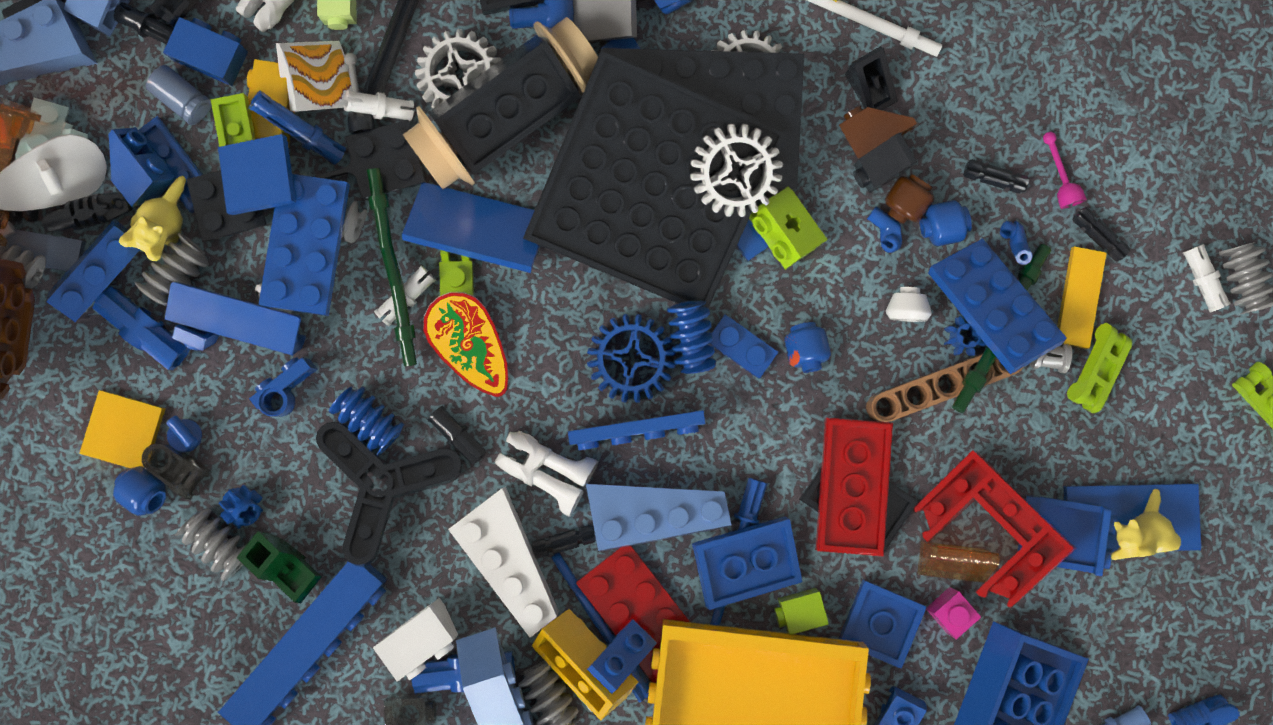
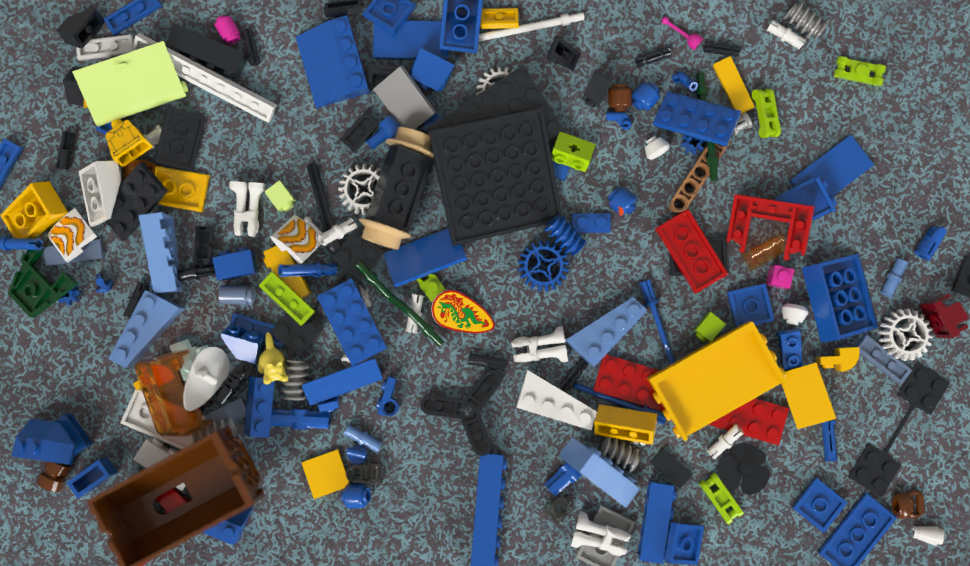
camera: 25 degrees left, 0 degrees up
(207, 417) = (362, 438): none -> medium blue pin
(213, 542) = (409, 494): light grey piece -> none
(241, 506) = (409, 468): blue gear -> none
(256, 174) = (307, 305): blue tile -> none
(279, 562) = (449, 481): dark green brick -> none
(366, 419) = (439, 384): blue piece -> none
(417, 640) = (540, 469): white slope -> none
(622, 432) = (576, 292): blue plate -> none
(622, 656) = (640, 407): blue plate -> none
(747, 562) = (667, 322): blue plate -> none
(751, 163) = (535, 135): white gear -> none
(872, 127) = (579, 76): reddish brown slope -> none
(936, 679) = (794, 313): none -> white cone
(1146, 533) = (843, 175): light yellow animal -> none

